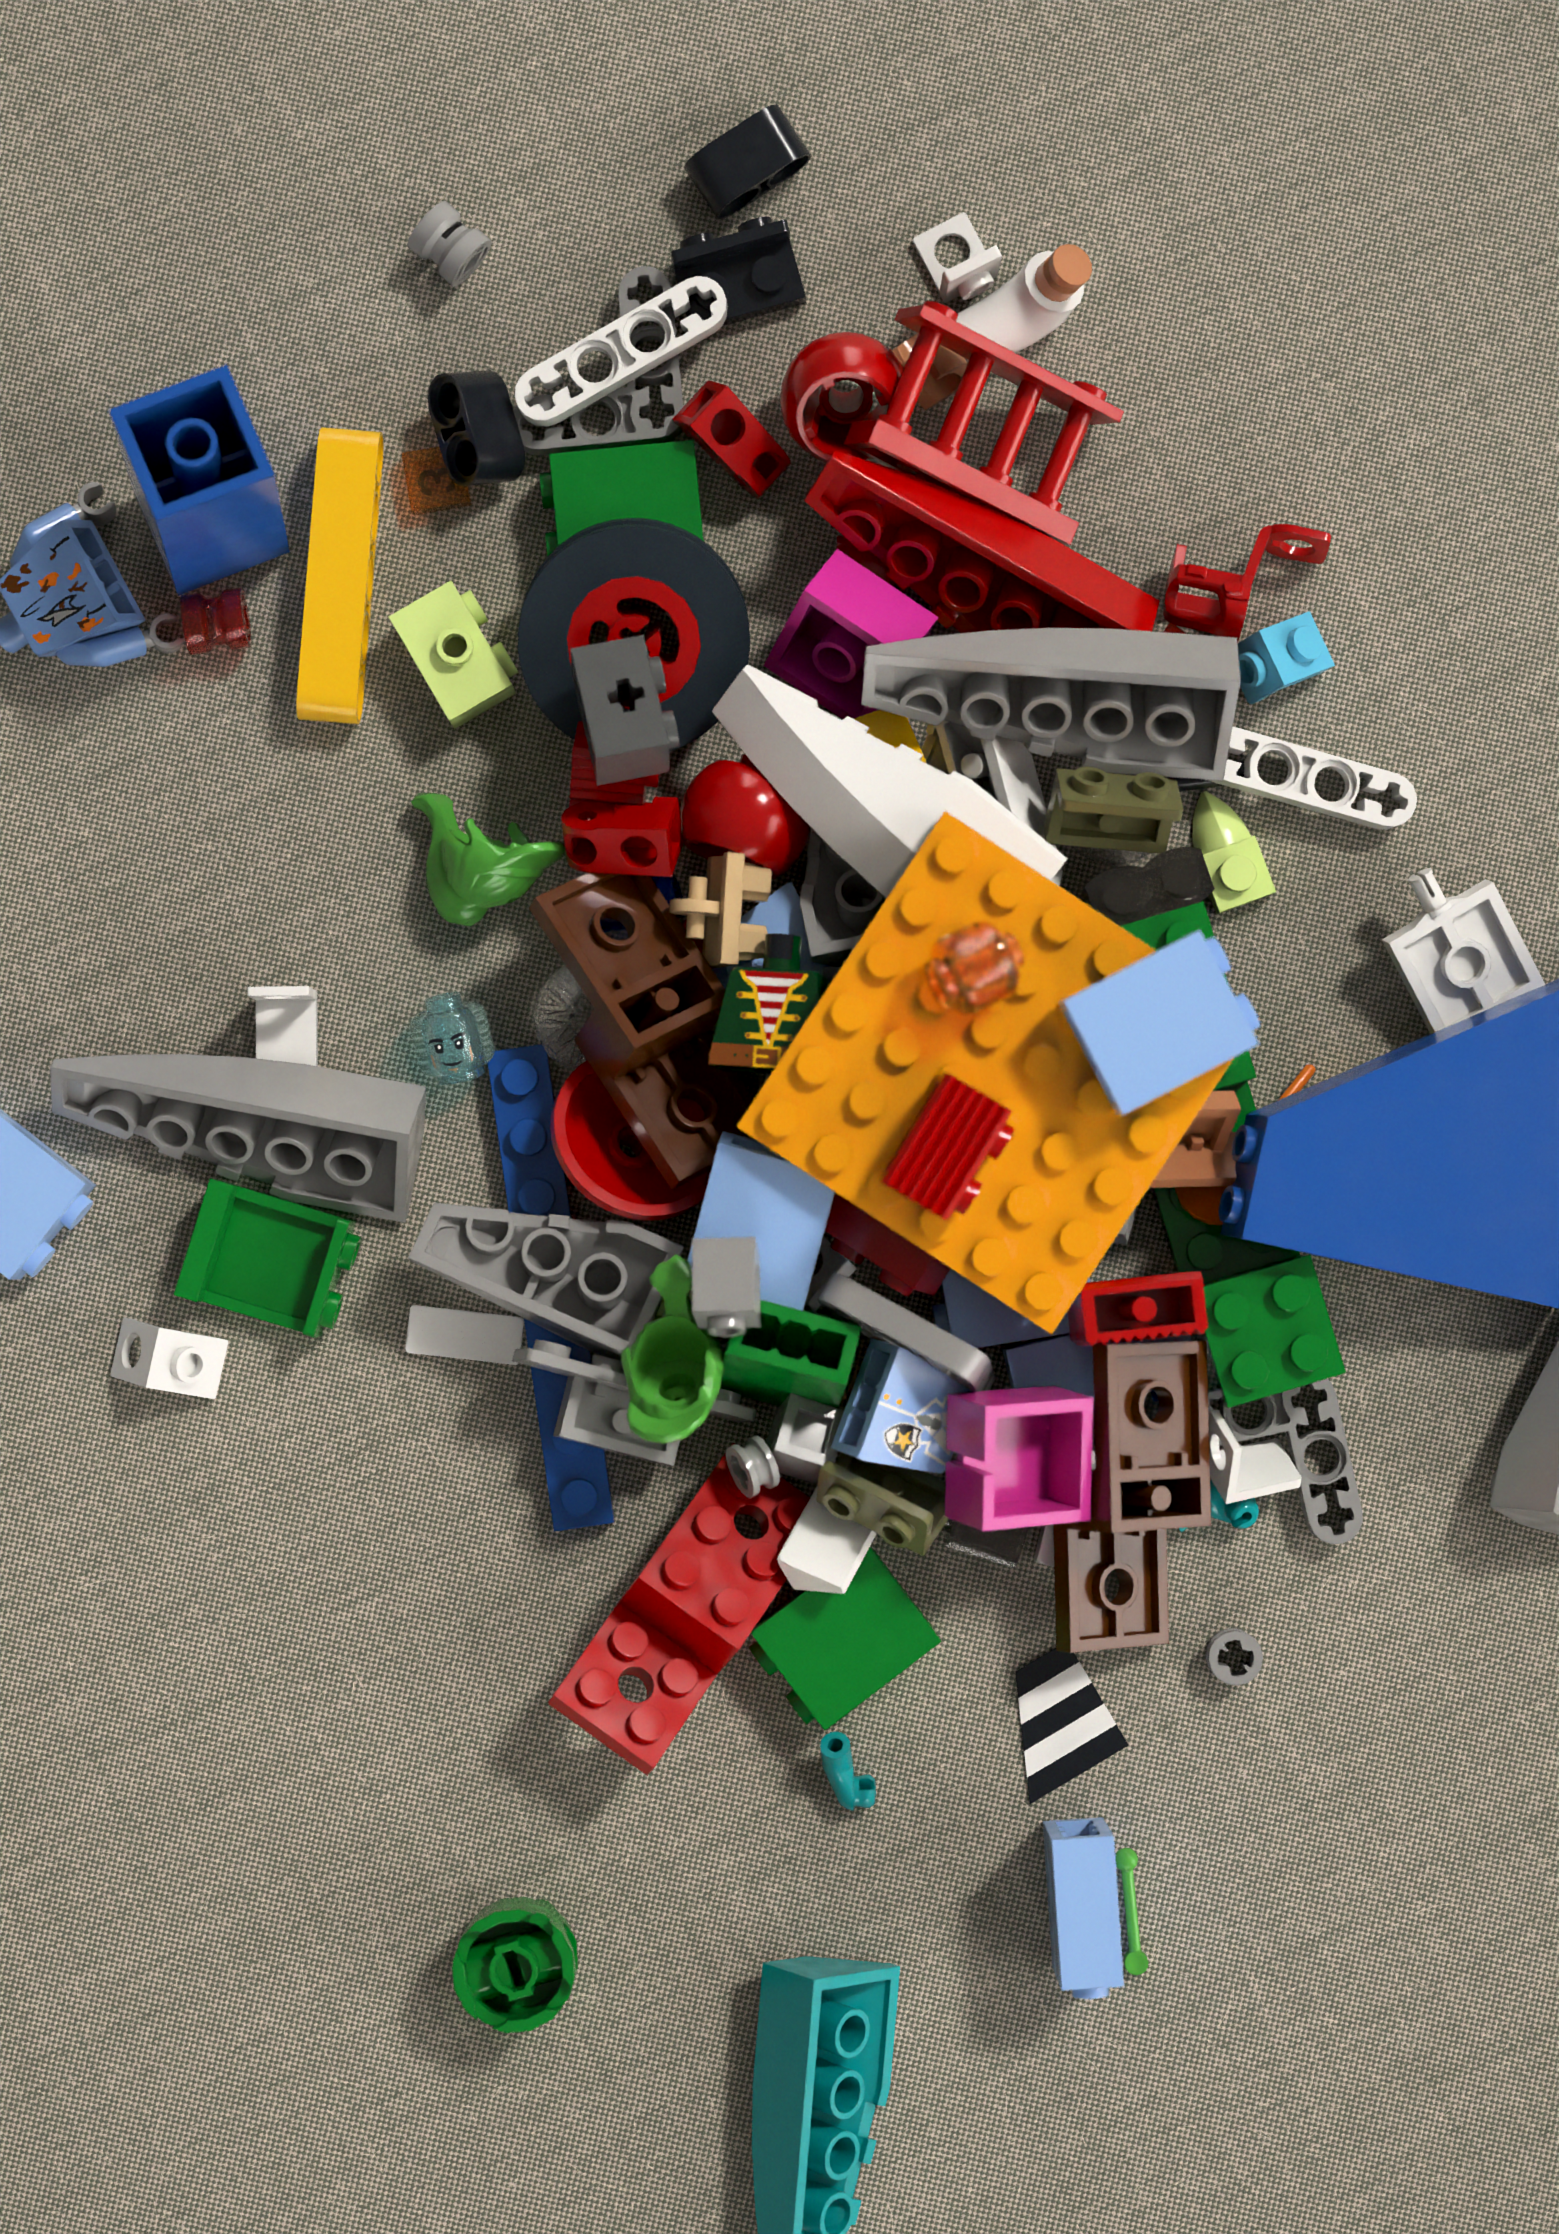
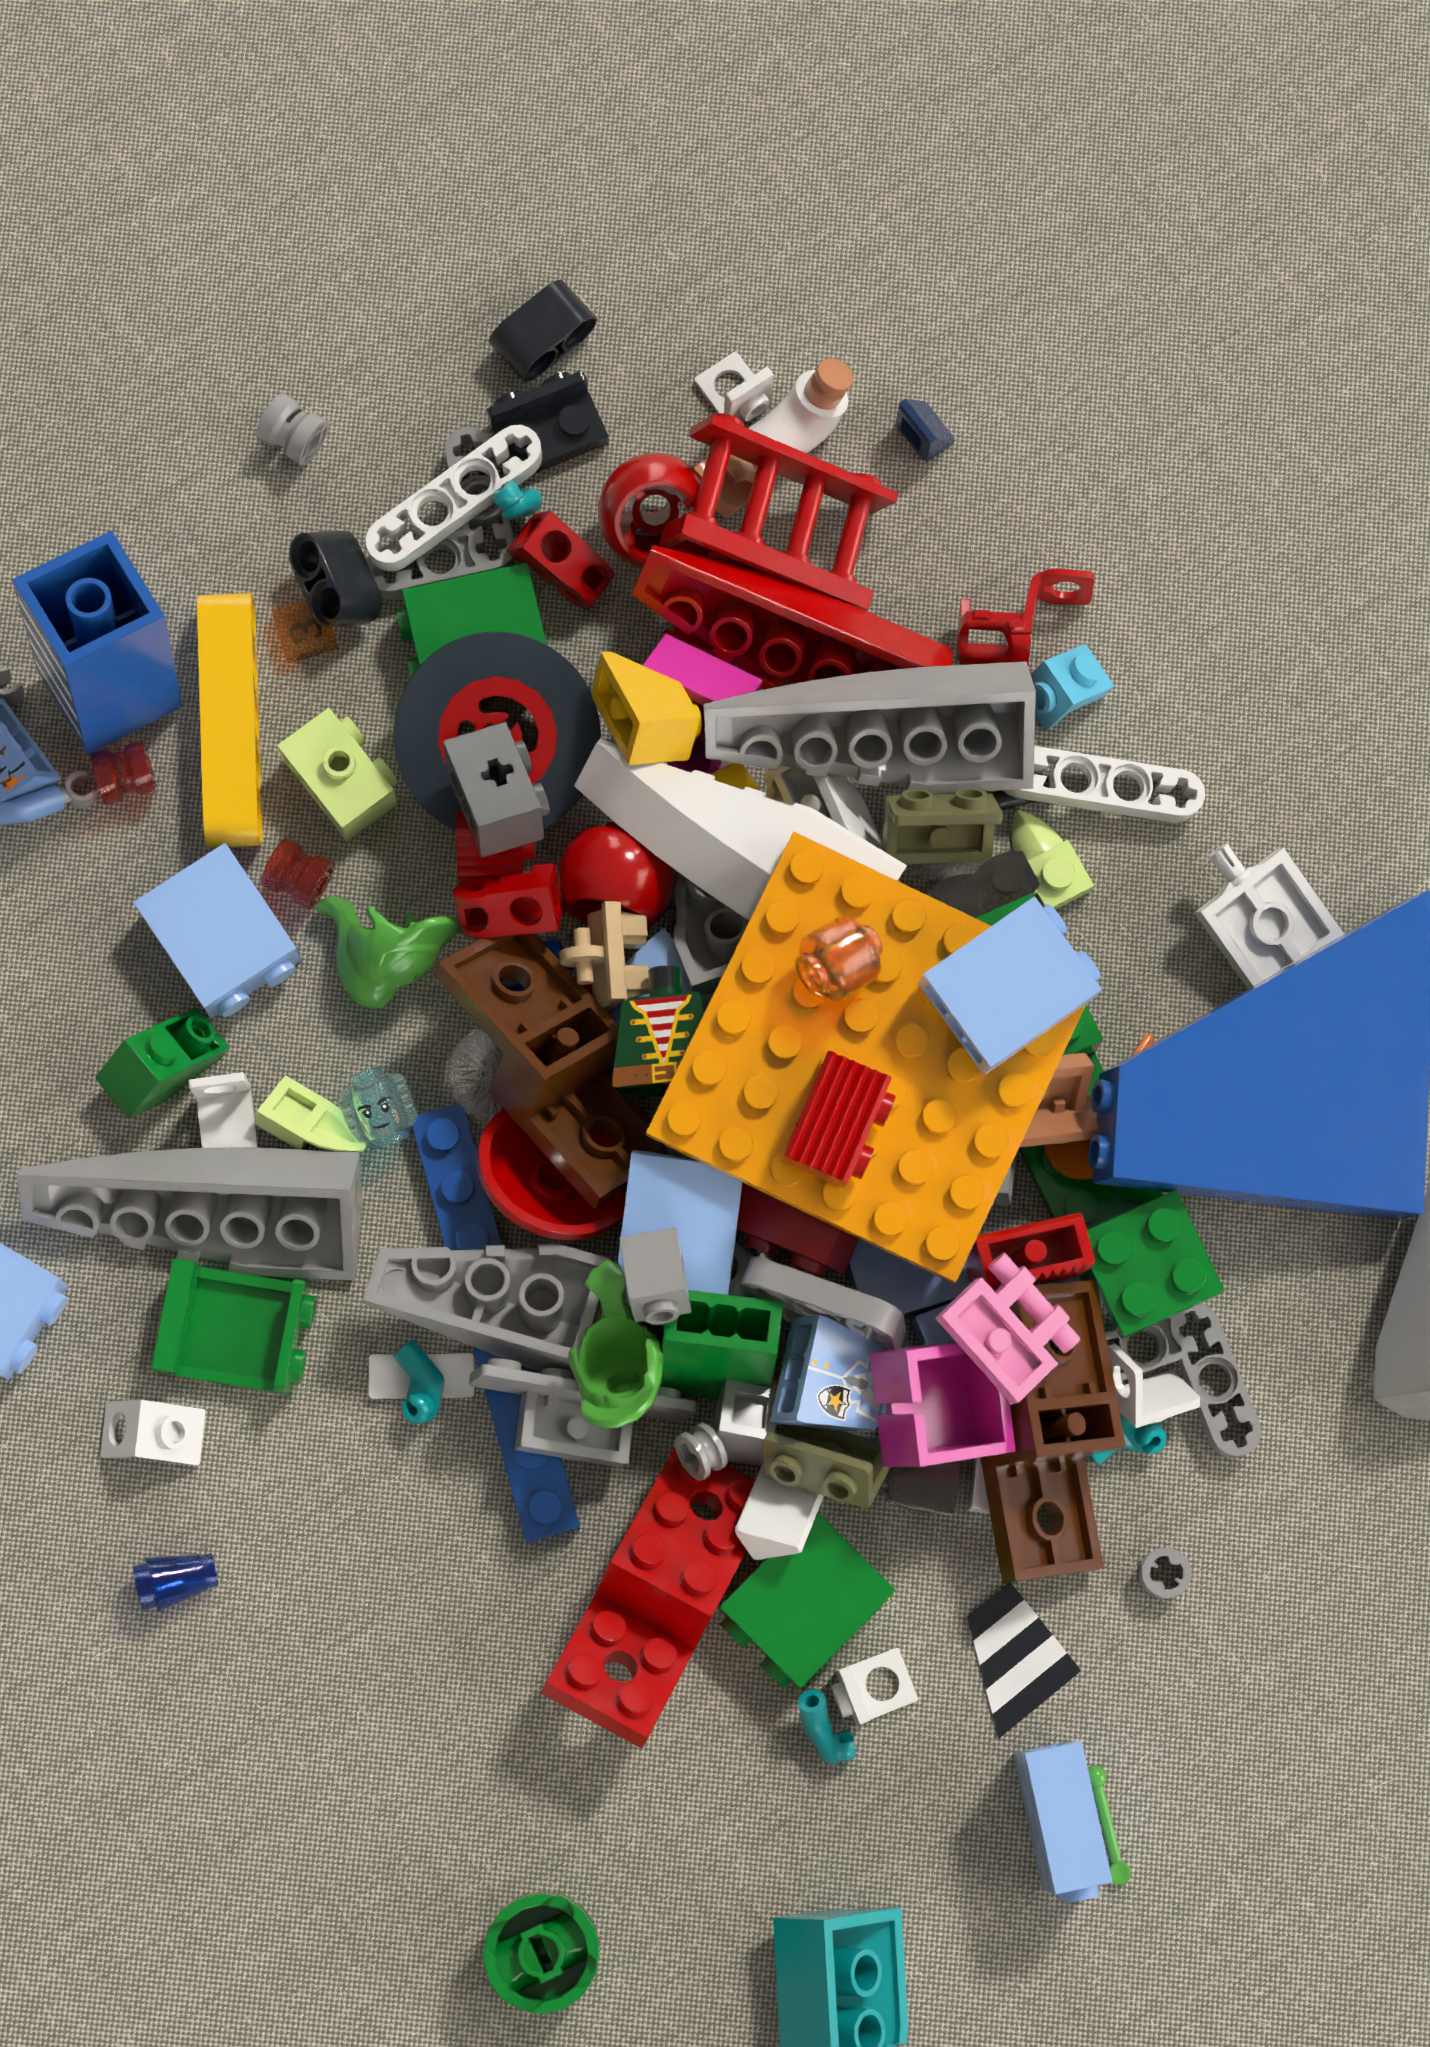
camera: 10 degrees left, 10 degrees down
(173, 1519) = (173, 1579): none -> clear blue cone
(222, 955) = (160, 1062): none -> green slope
(300, 818) = (219, 932): none -> light blue brick
(371, 1039) = (305, 1117): none -> yellowish green plate
(395, 762) = (297, 873): none -> clear red wheel
(466, 1349) = (425, 1384): none -> teal arm
(691, 365) = (517, 501): none -> teal arm
(800, 642) = (645, 711): none -> yellow slope
(882, 1744) = (852, 1694): none -> white bracket
(1087, 1405) = (998, 1339): none -> bright pink plate
(1165, 333) = (923, 428): none -> dark blue slope

